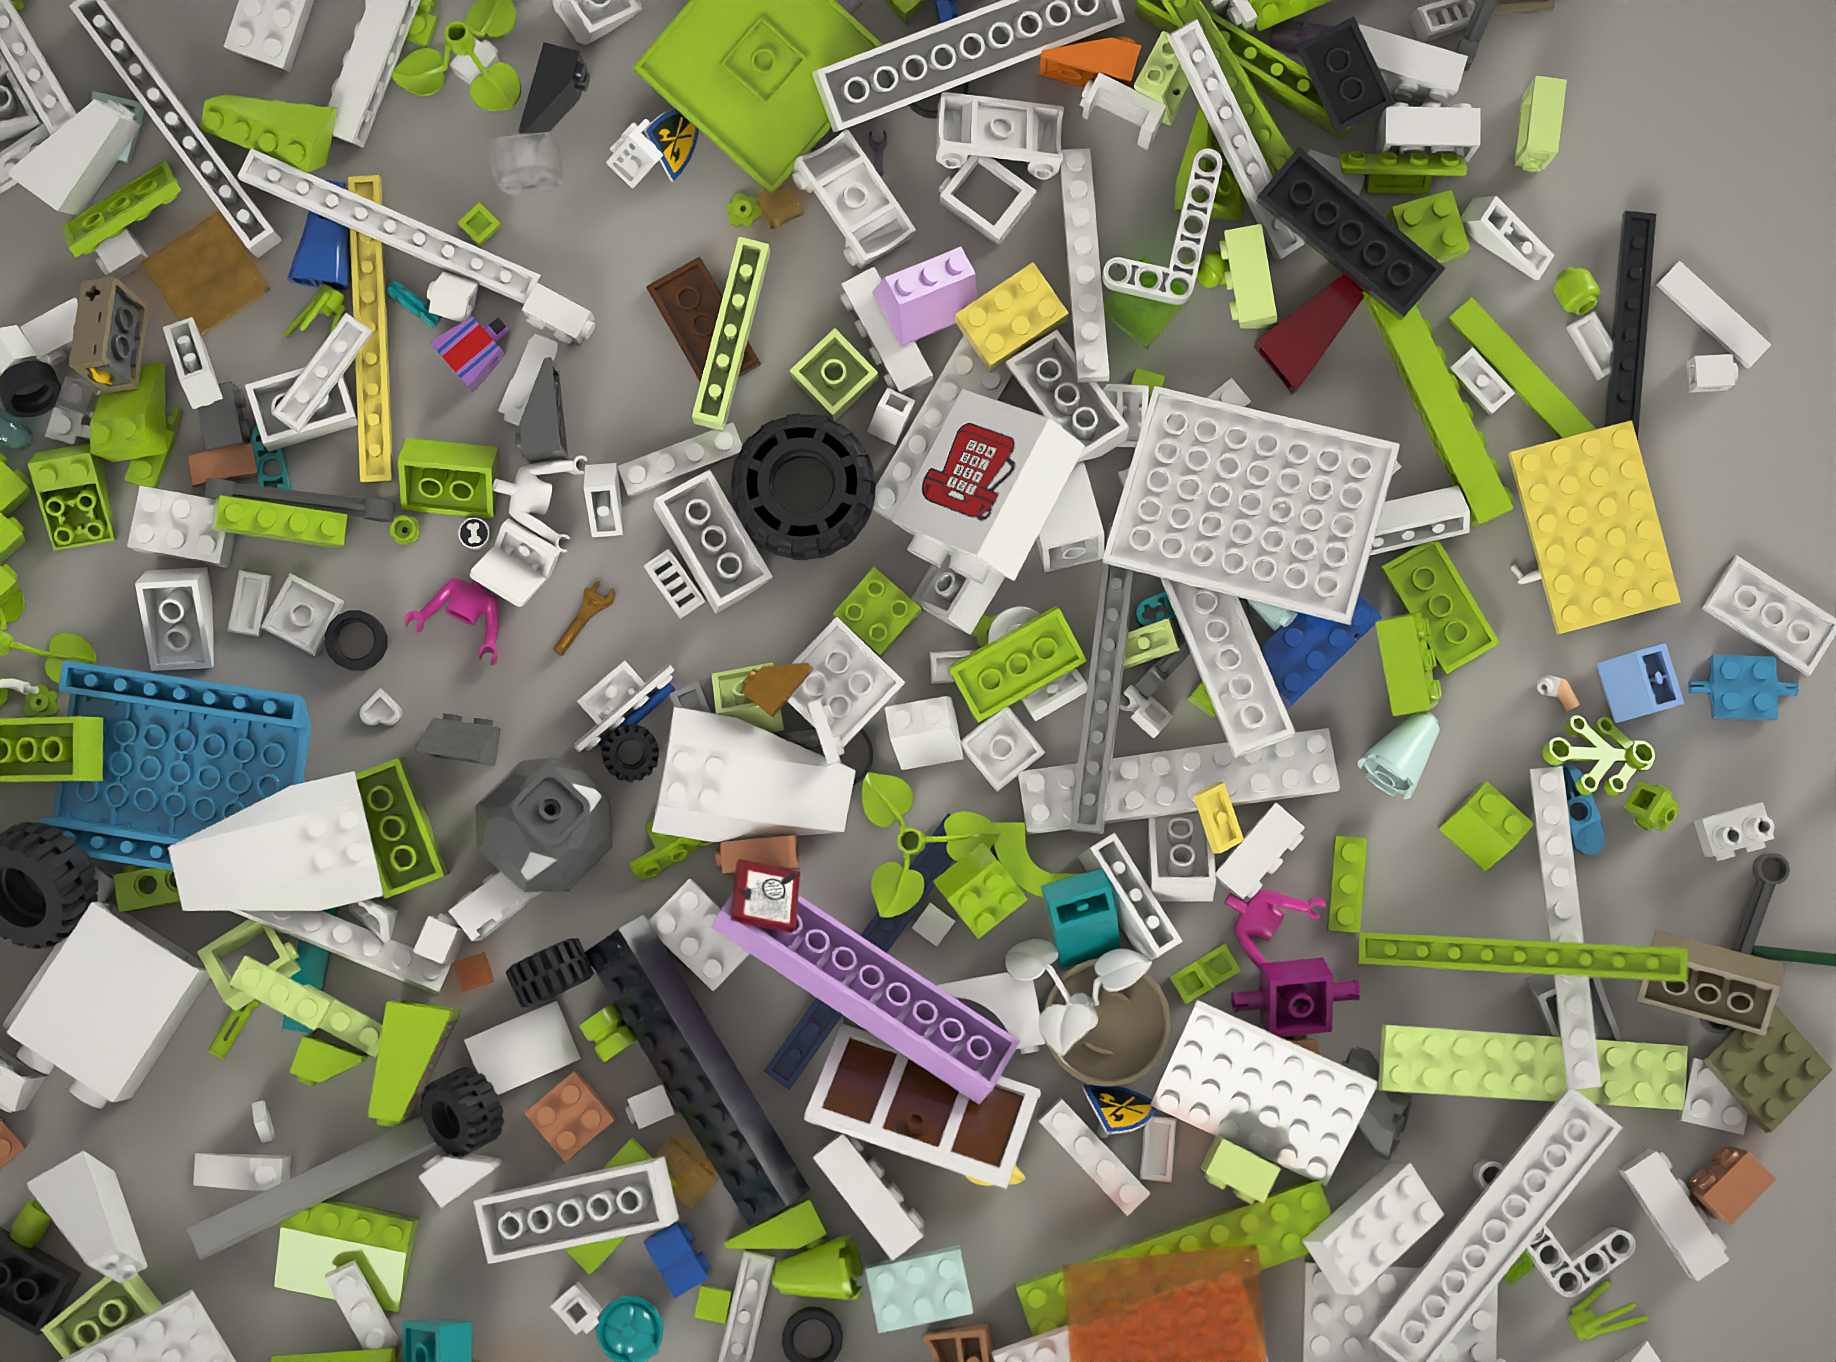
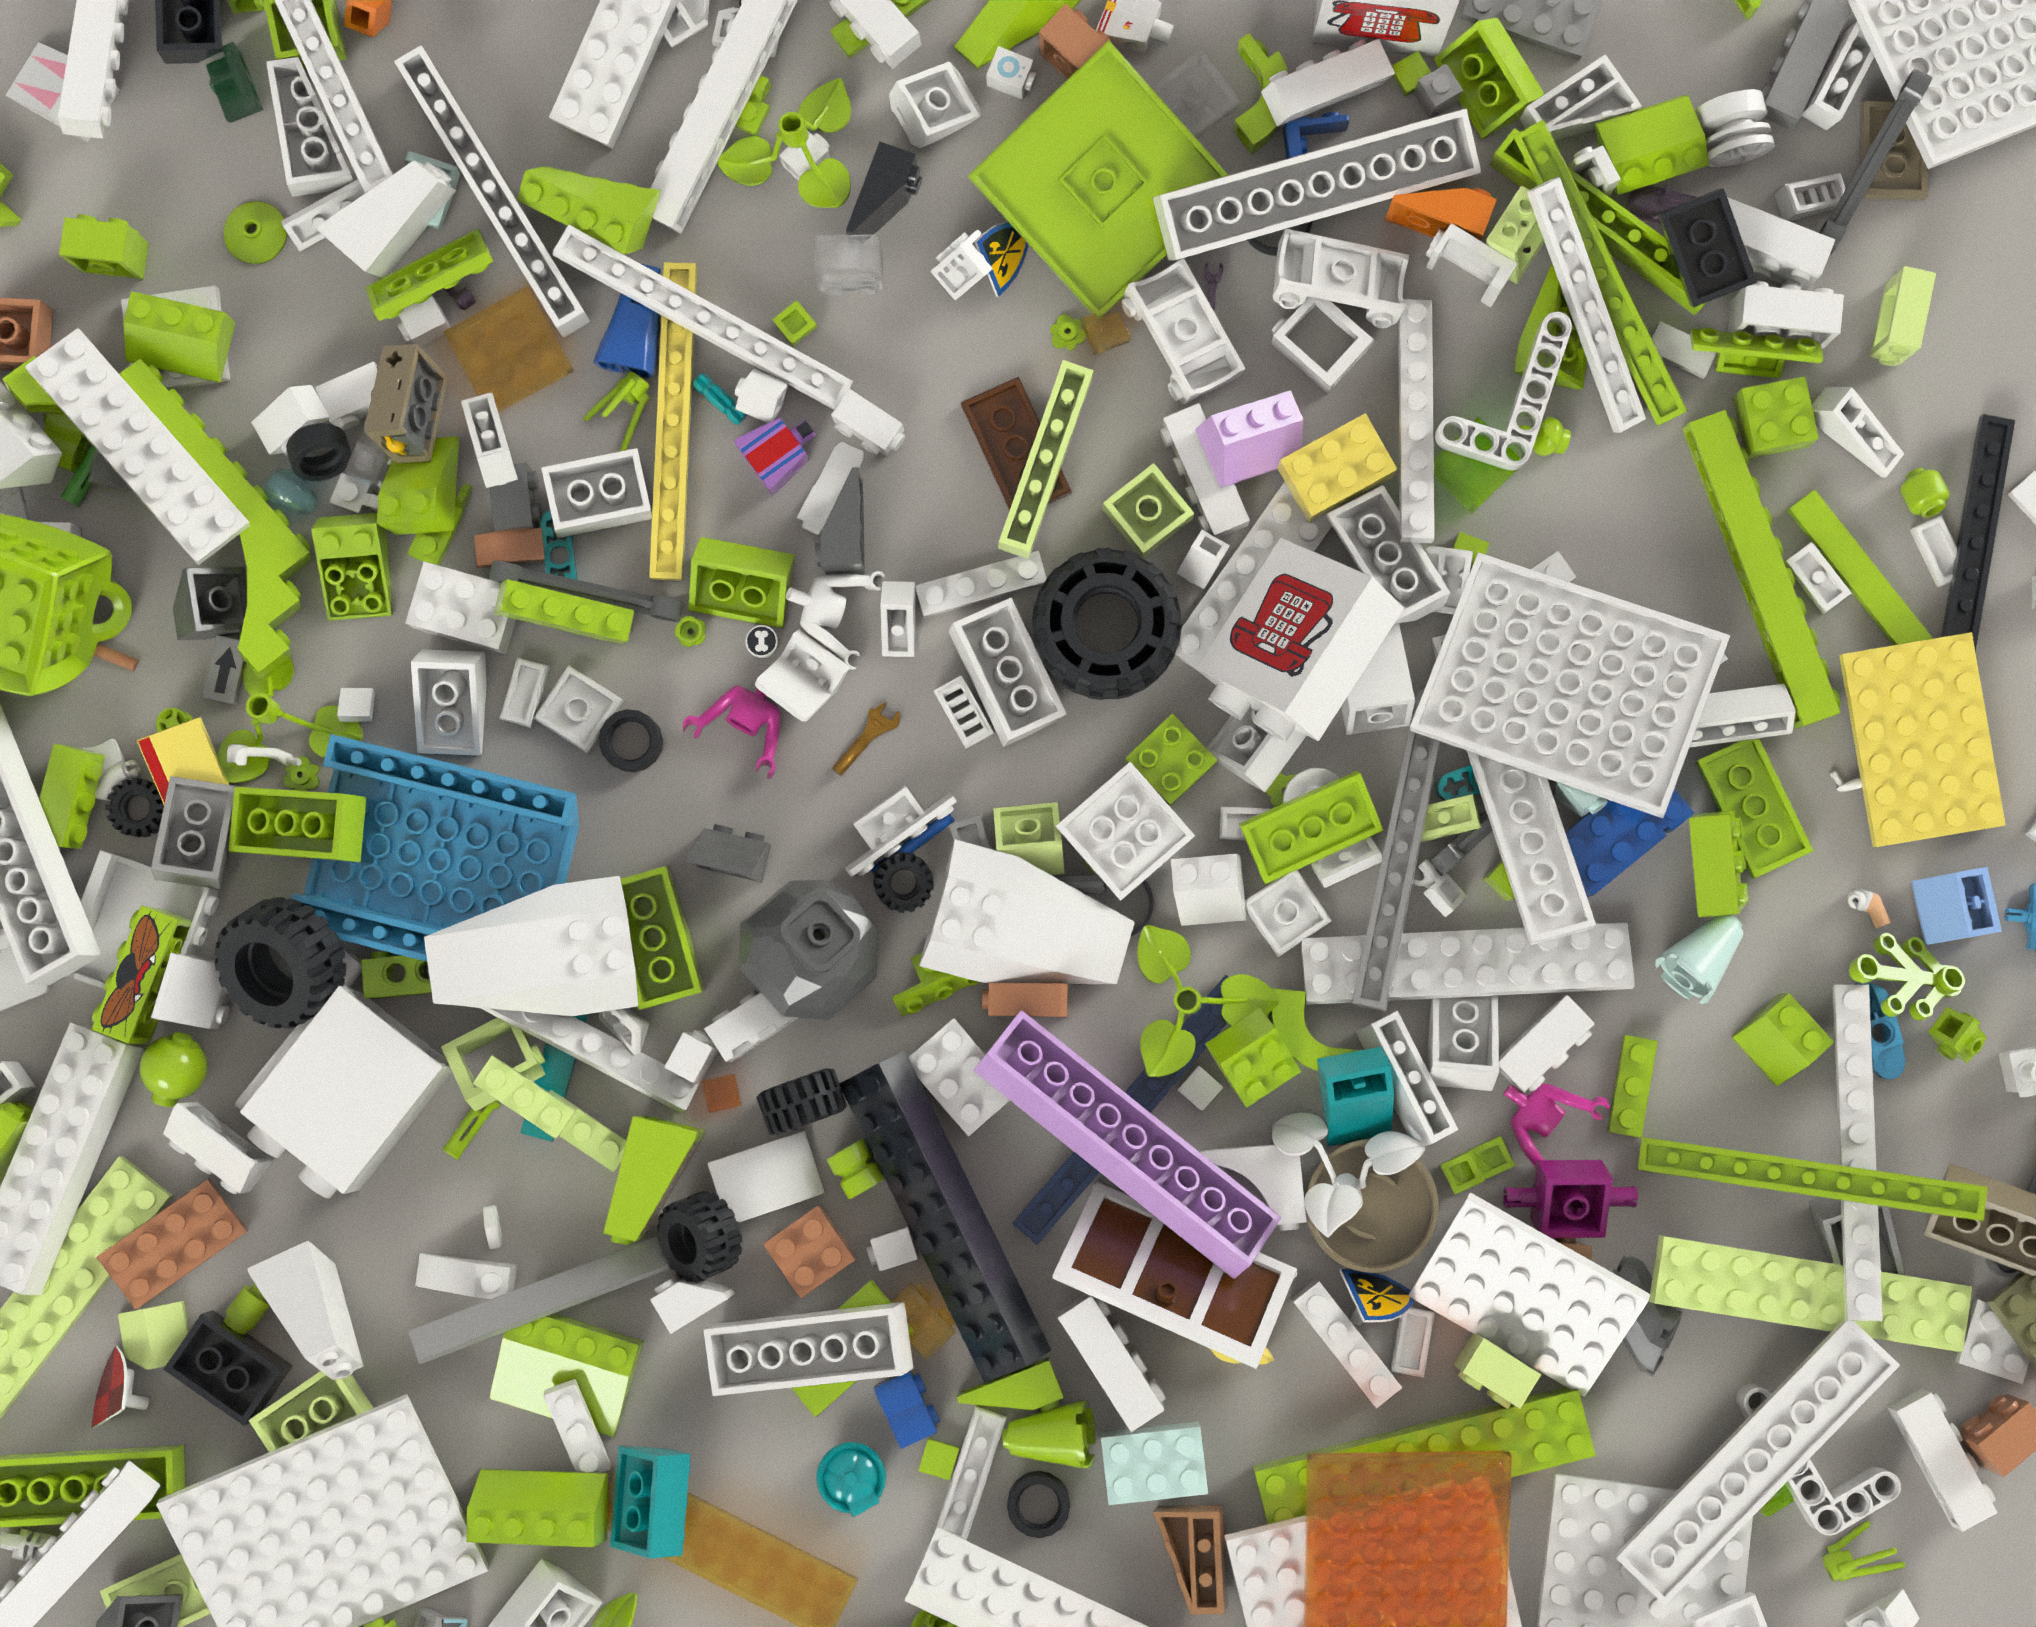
camera: 10 degrees right, 0 degrees up
(87, 629) = (356, 704): none -> white tile
(156, 228) = (462, 298): none -> hand
(322, 373) = (621, 462): white tile -> none
(323, 1060) = (560, 1170): lime slope -> none
(381, 709) = (649, 814): white tile -> none
(578, 1309) = (799, 1451): white window -> none
(765, 896) = (1033, 1043): tile -> none
(775, 685) = (1060, 826): pearl gold slope -> none
(822, 719) = (1113, 893): white plate -> none
(1218, 817) = (1506, 1005): light yellow plate -> none
(1249, 278) = (1587, 449): yellowish green slope -> none
(1306, 334) = (1639, 514): dark red slope -> none
(1350, 234) = (1697, 413): black brick -> none
(1373, 1228) = (1630, 1445): white brick -> none

